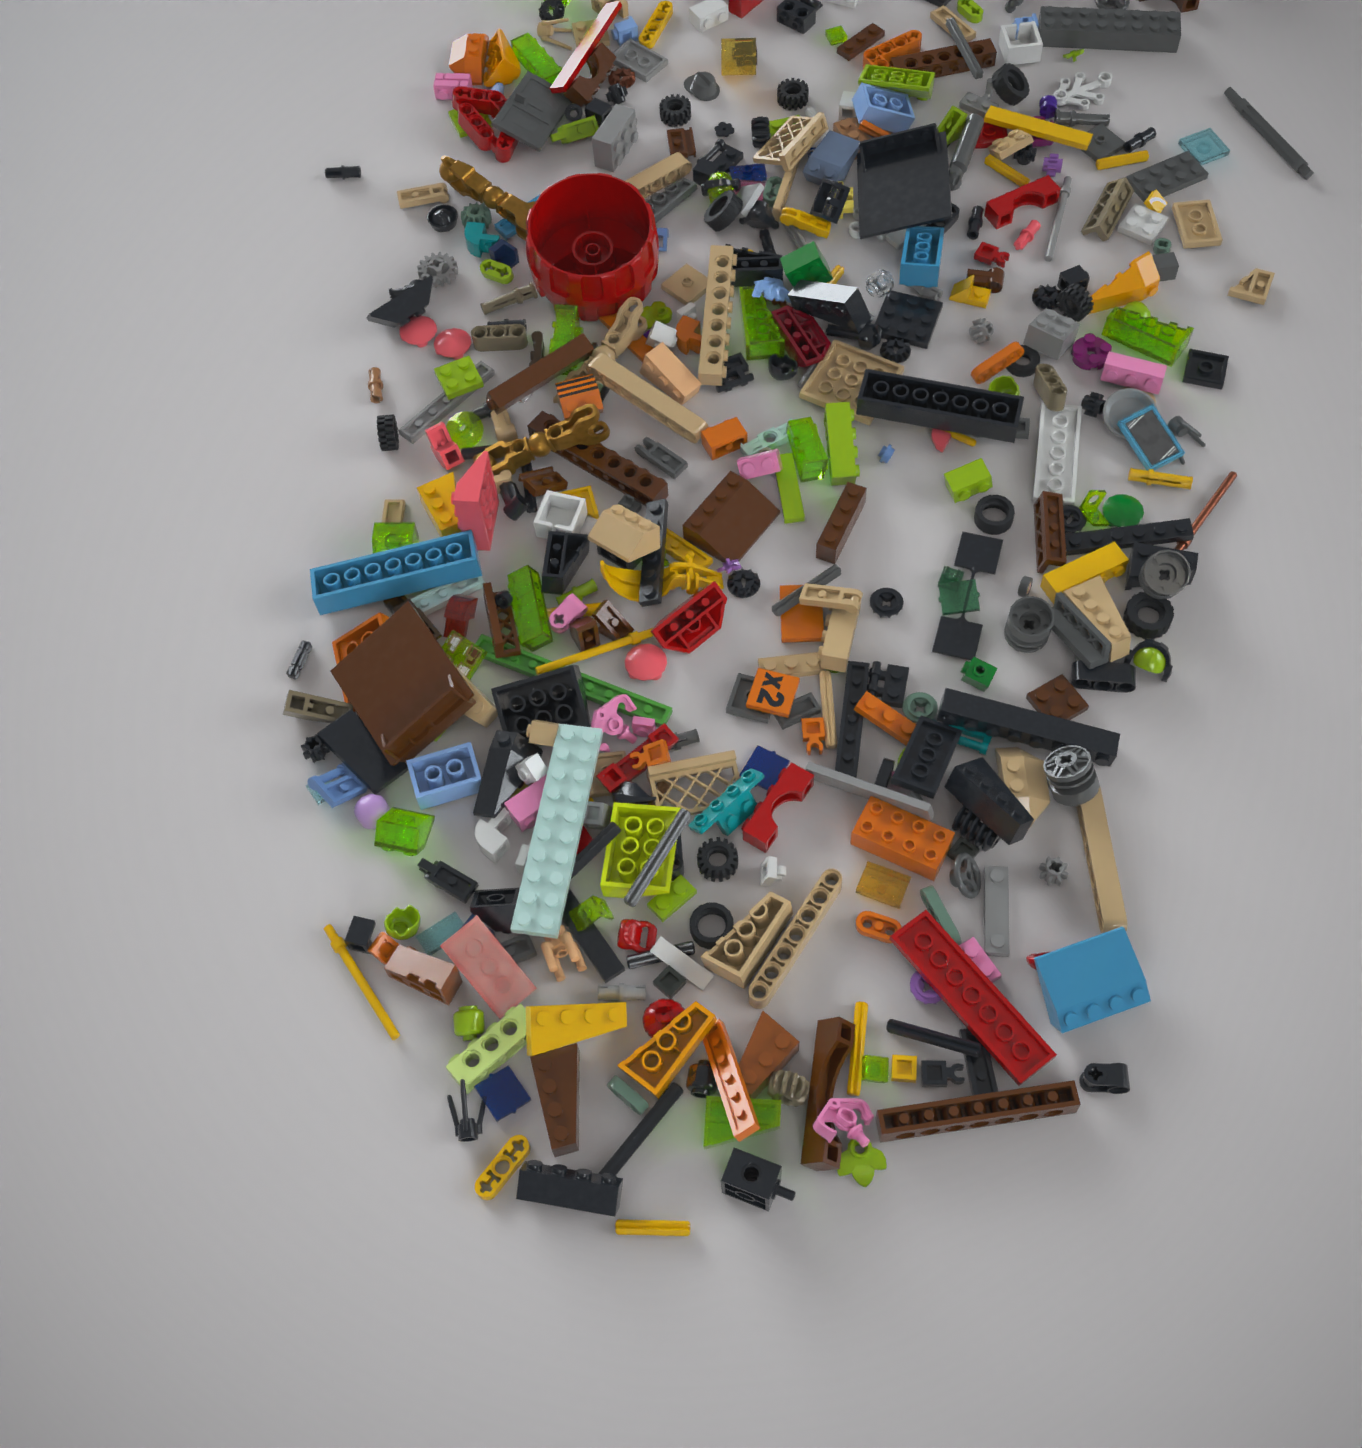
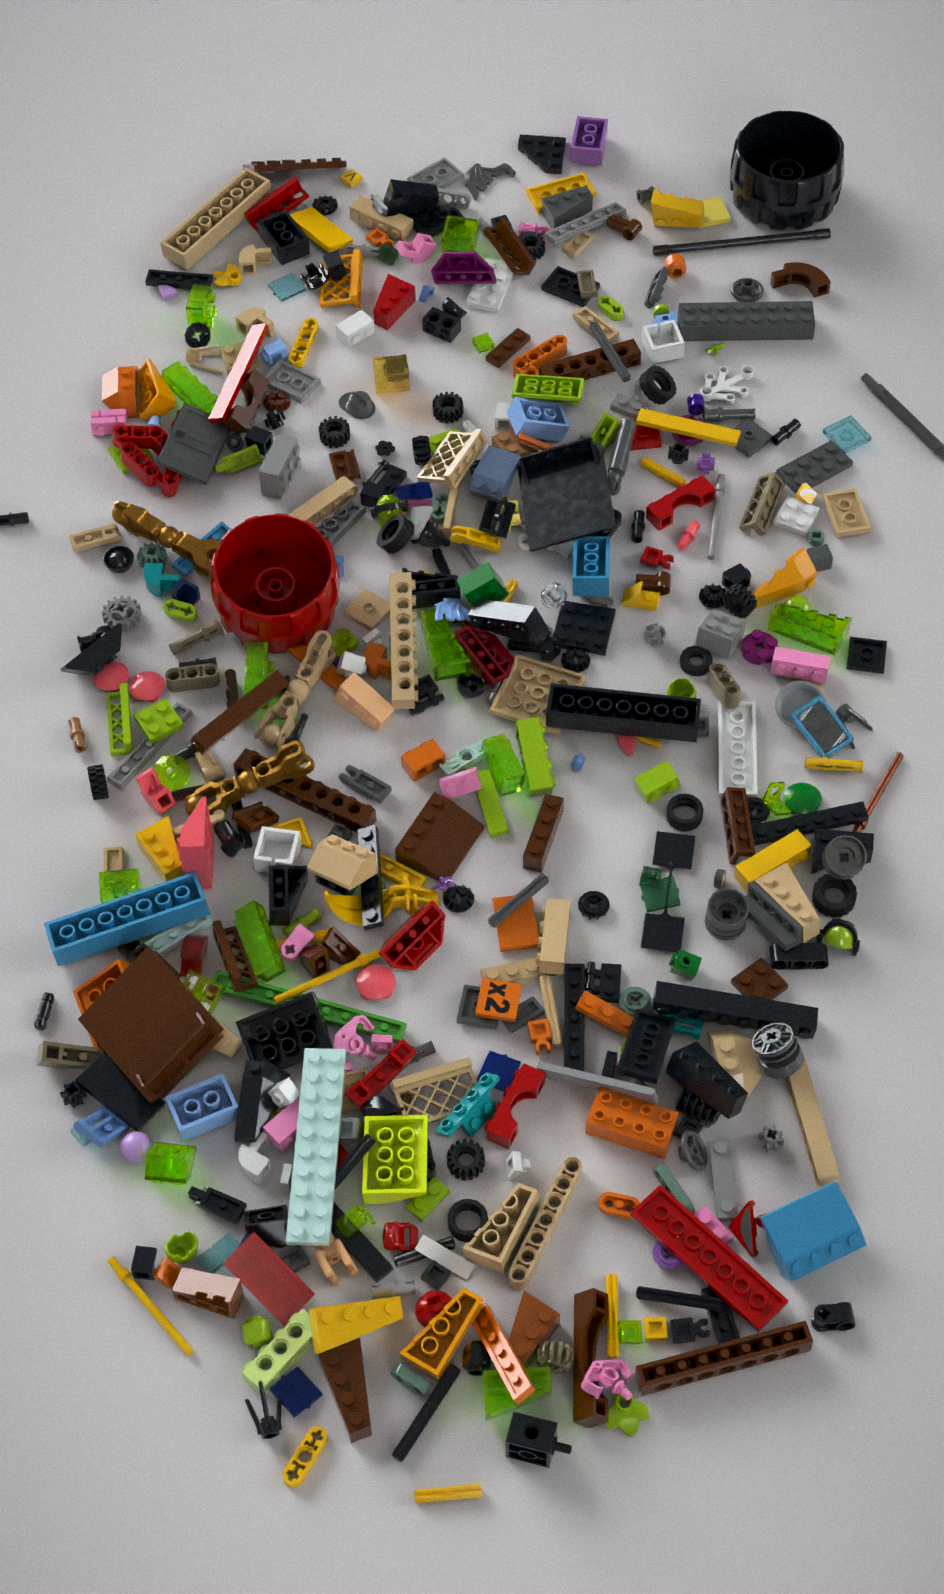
camera: 10 degrees left, 5 degrees down
(424, 377) = (124, 722): none -> lime fence
(503, 603) = (234, 939): black hinge -> none
(542, 732) = (290, 1058): tan brick -> none
(569, 1188) = (369, 1467): black brick -> none
(577, 393) = (280, 730): orange slope -> none
(647, 397) = (345, 727): tan beam -> none
(653, 754) = (396, 1068): orange plate -> none
(657, 858) = (412, 1162): dark grey axle -> none
(831, 597) = (542, 905): tan plate -> none
(883, 884) = (619, 1167): clear yellow plate -> none
(997, 362) = (673, 665): orange beam -> none
(1012, 143) = (664, 446): tan plate -> none
(1015, 967) = (745, 1228): none -> red tile
(1021, 12) = (660, 309): none -> lime tile
(1093, 404) = (765, 698): black gear -> none
(1121, 160) = (771, 453): yellow axle -> none
(1253, 287) = (904, 571): tan wing -> none

